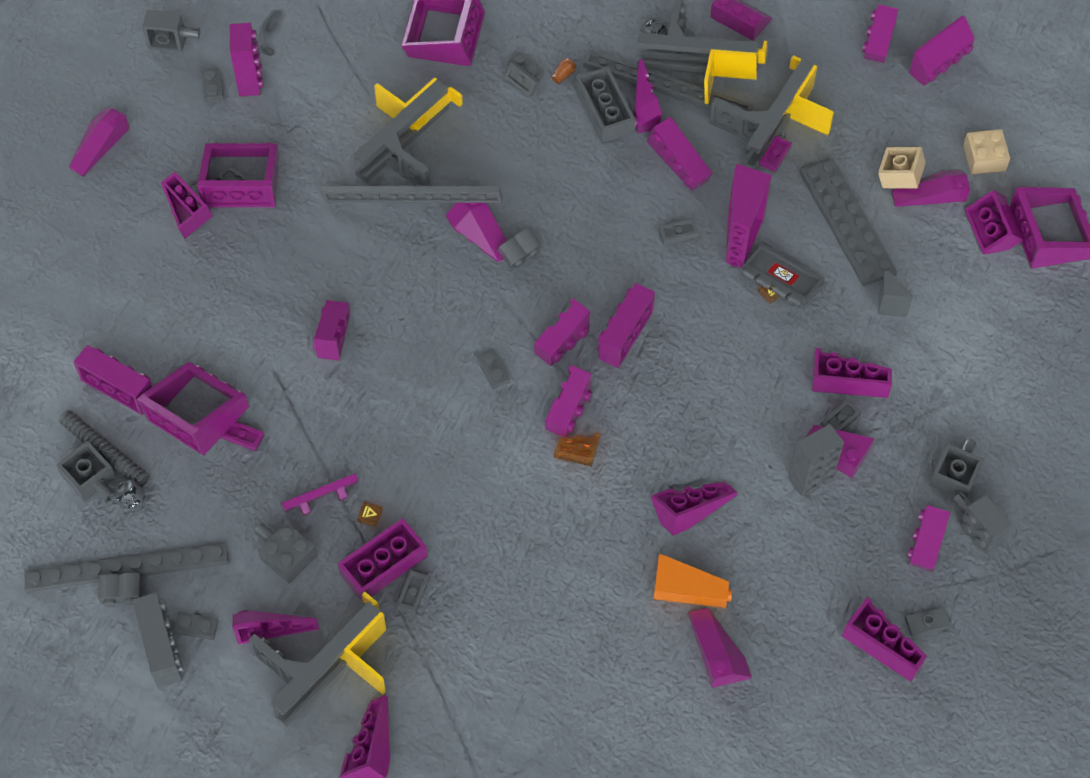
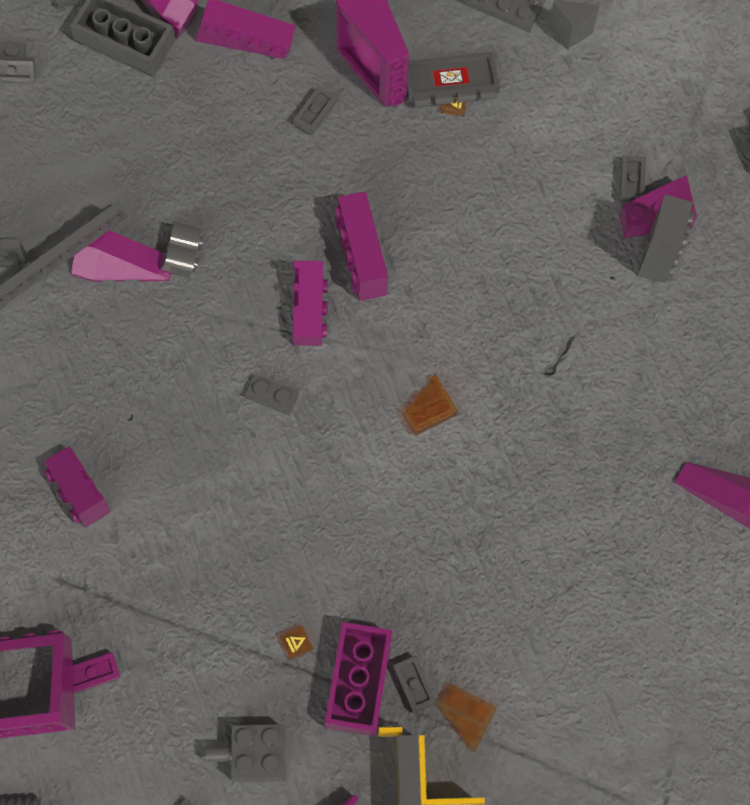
camera: 45 degrees left, 10 degrees up
(303, 500) = (220, 686): magenta hinge -> none
(427, 636) = (467, 714): none -> clear orange wing
(563, 70) = (44, 27): dark orange cone -> none
(570, 402) = (381, 368): magenta wedge -> none
(687, 507) = (580, 381): magenta wedge -> none
(689, 585) = (649, 456): orange slope -> none
(849, 376) = (599, 135): magenta wedge -> none

